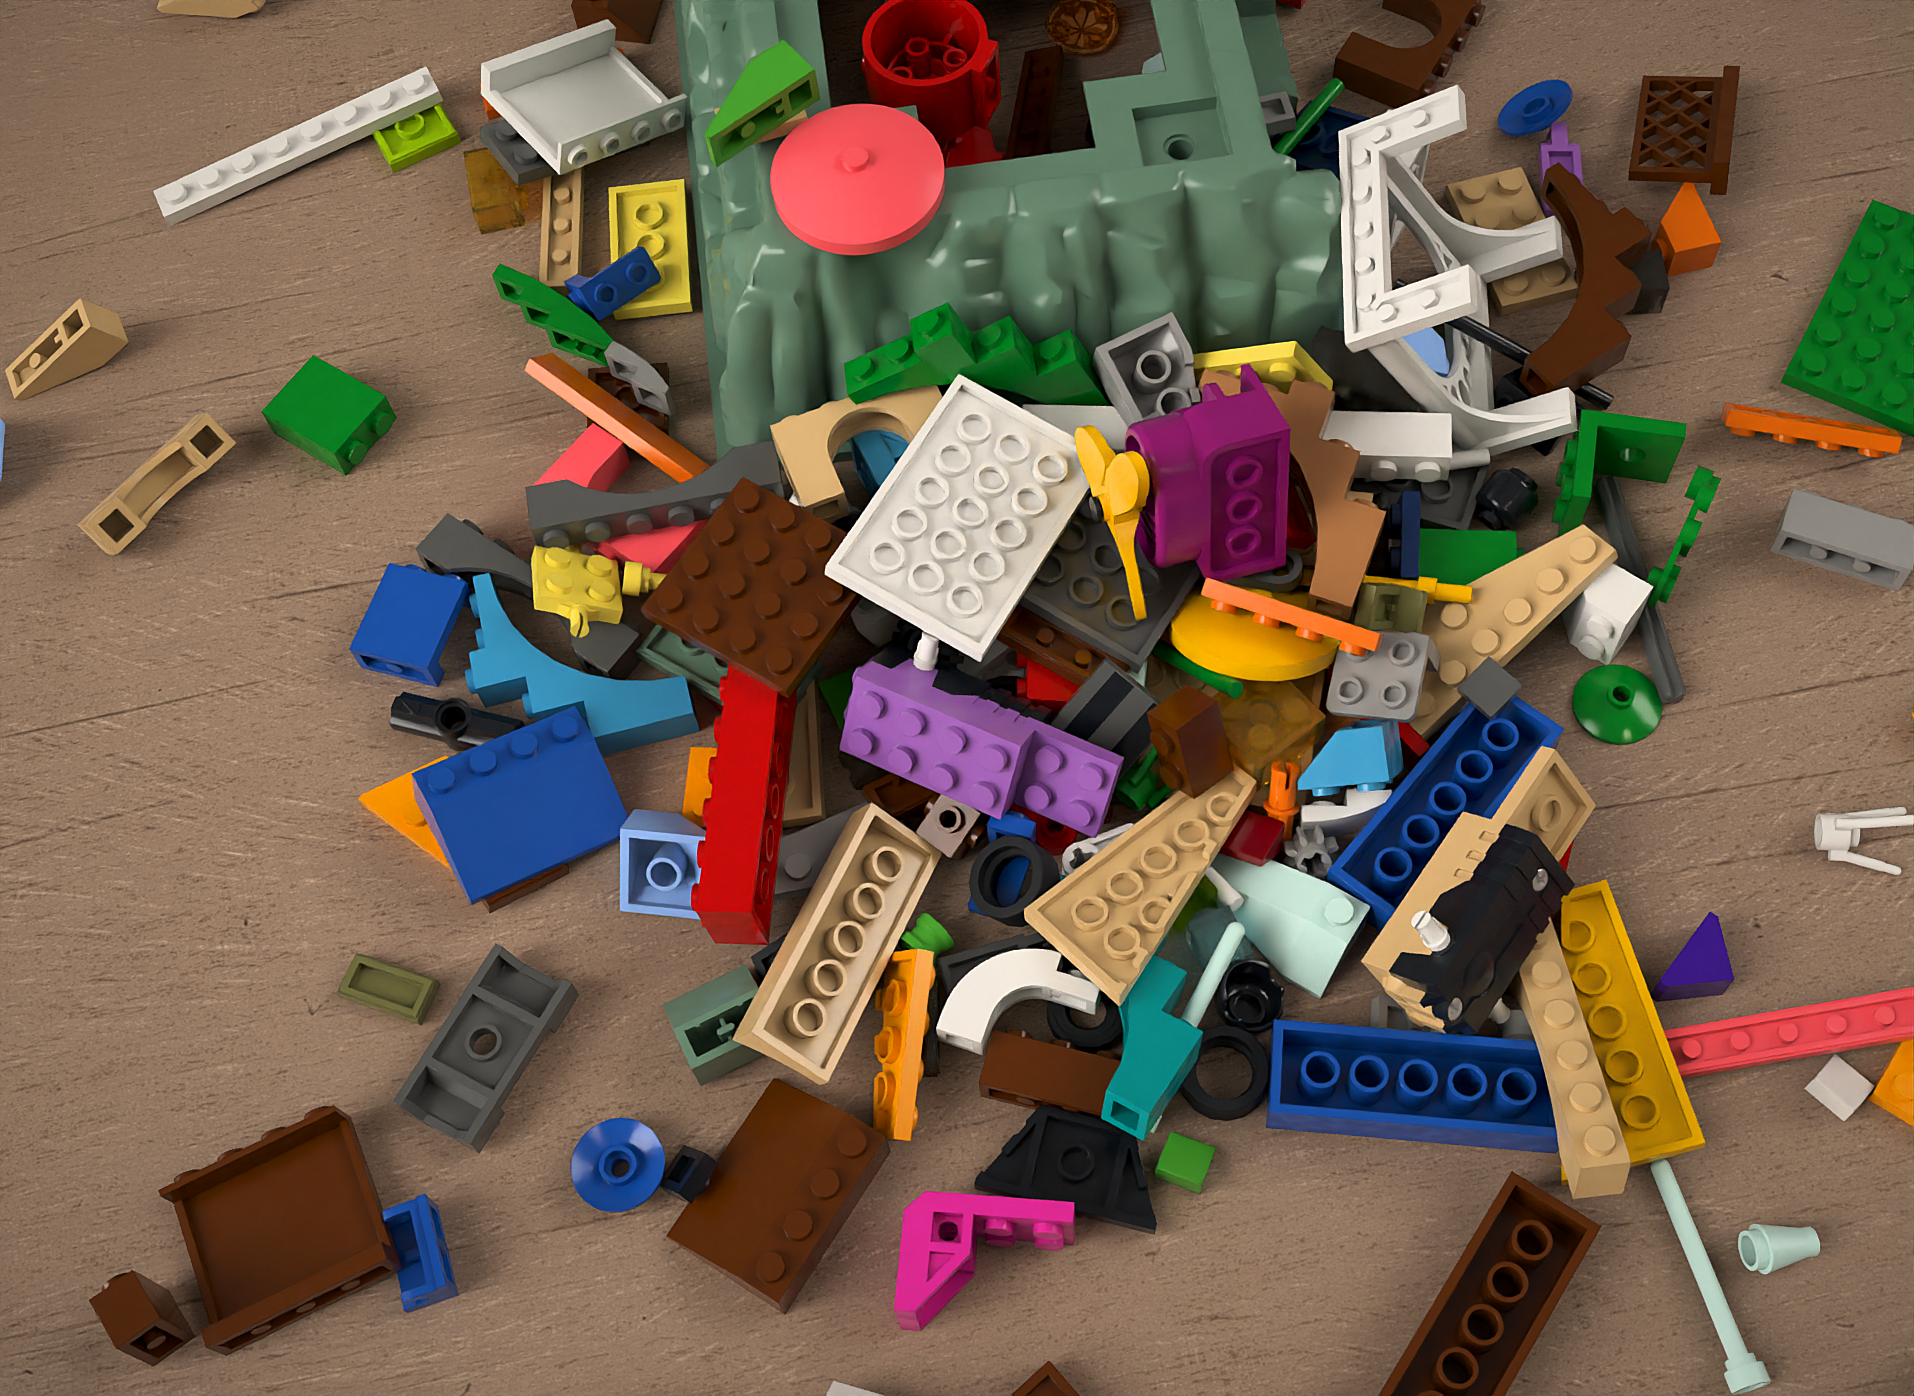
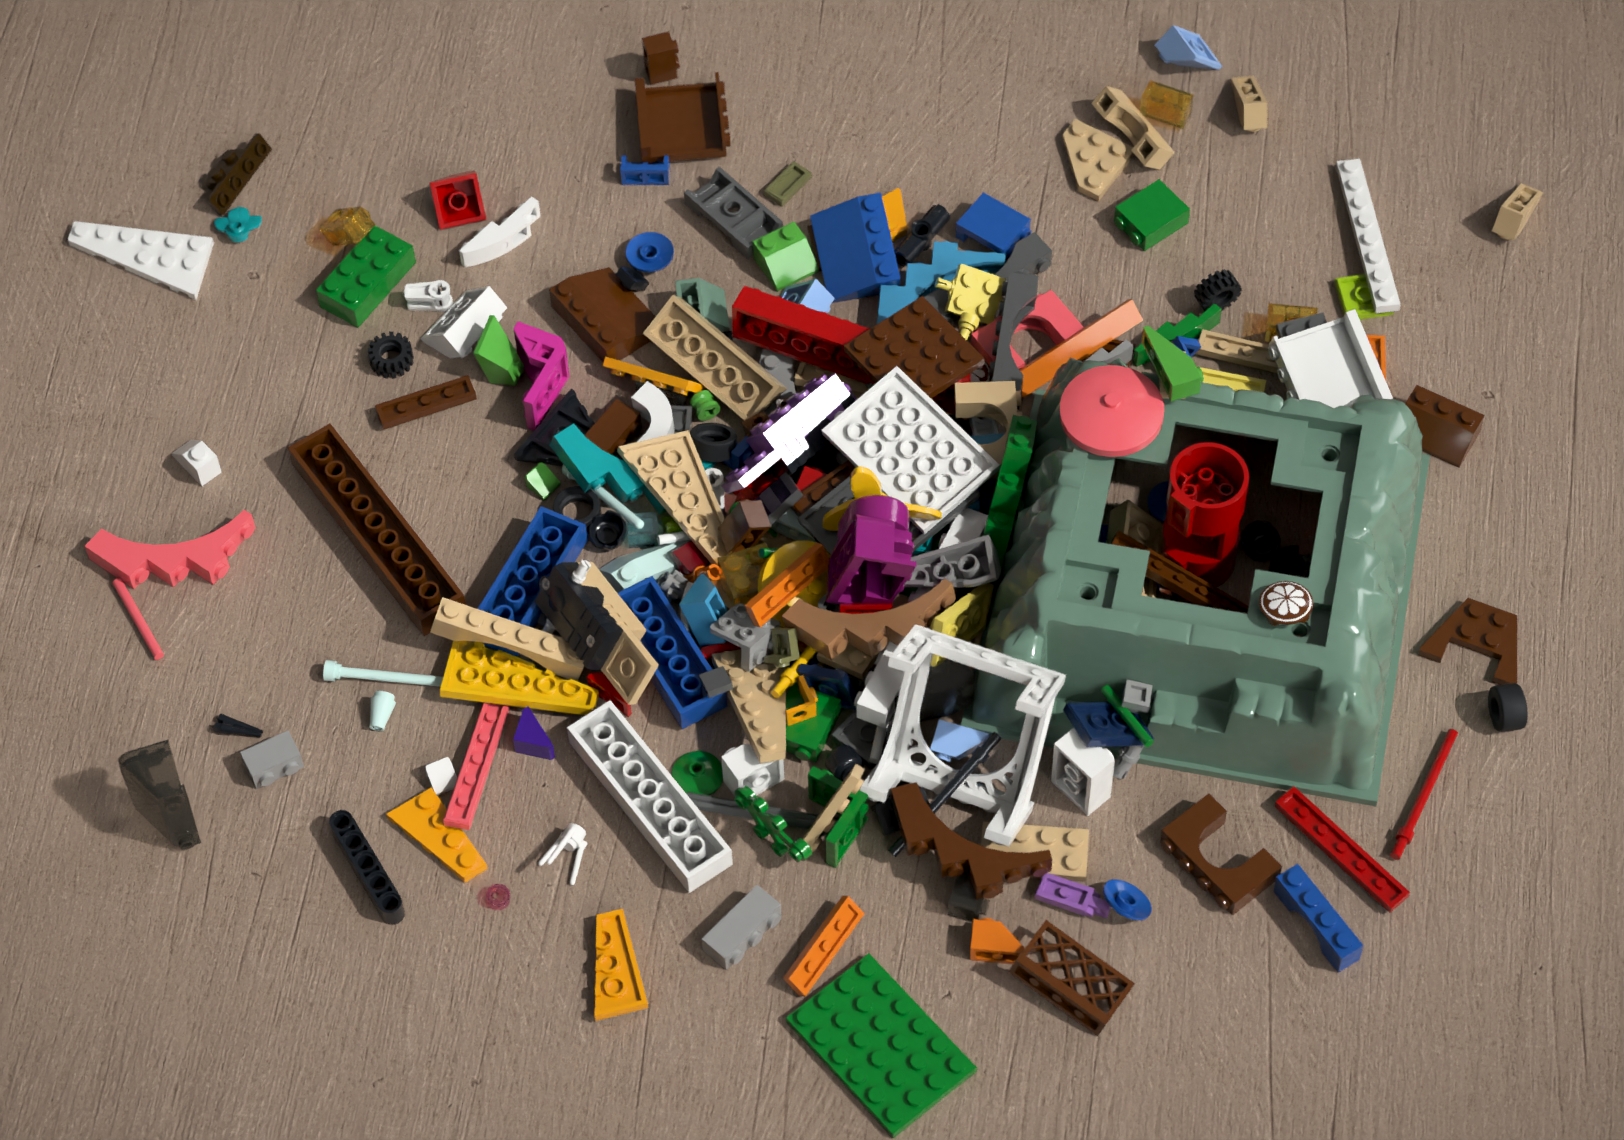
camera: 105 degrees right, 5 degrees down
(98, 450) = (1166, 104): none -> clear yellow brick
(223, 532) = (1094, 158): none -> tan plate
(466, 279) = (1219, 289): none -> black tyre
(562, 925) = (785, 256): none -> bright green slope
(956, 1337) = (498, 355): none -> bright green slope
(1460, 548) = (810, 699): none -> light orange bracket
(1630, 452) = (836, 804): none -> tan plate
(1710, 741) = (650, 796): none -> white brick

